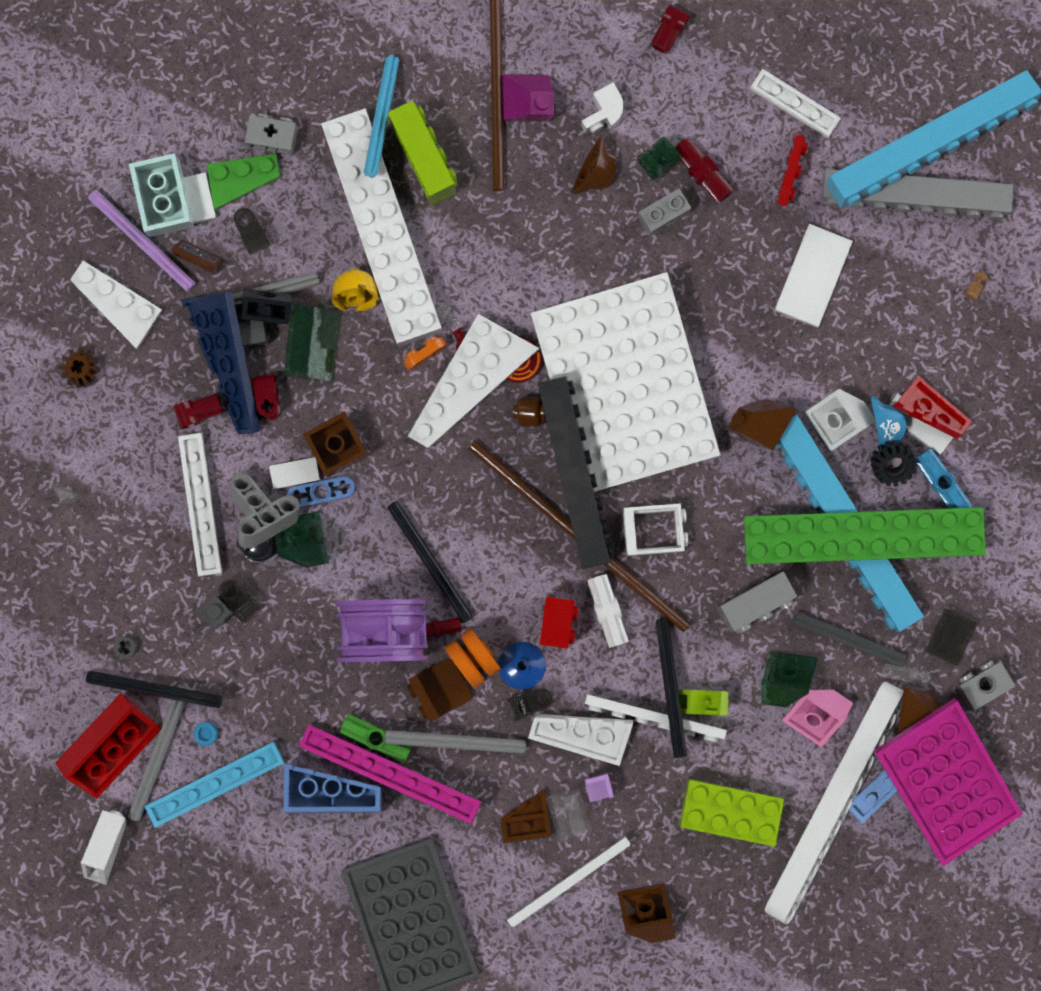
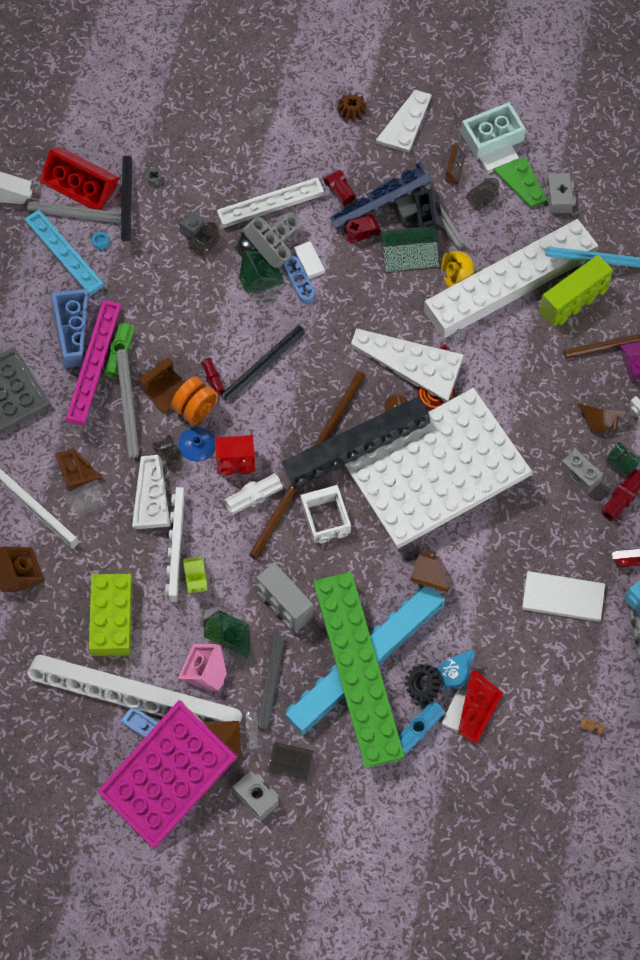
camera: 75 degrees right, 20 degrees down
(141, 240) = (456, 129): lavender axle -> none
(335, 445) = (337, 278): reddish brown brick -> none
(382, 630) = (201, 327): medium lavender wheel -> none
(432, 347) = (419, 323): orange plate -> none
(598, 787) = (112, 515): lavender panel -> none
(671, 688) = (201, 547): black axle -> none
(839, 418) = (451, 636): white slope -> none

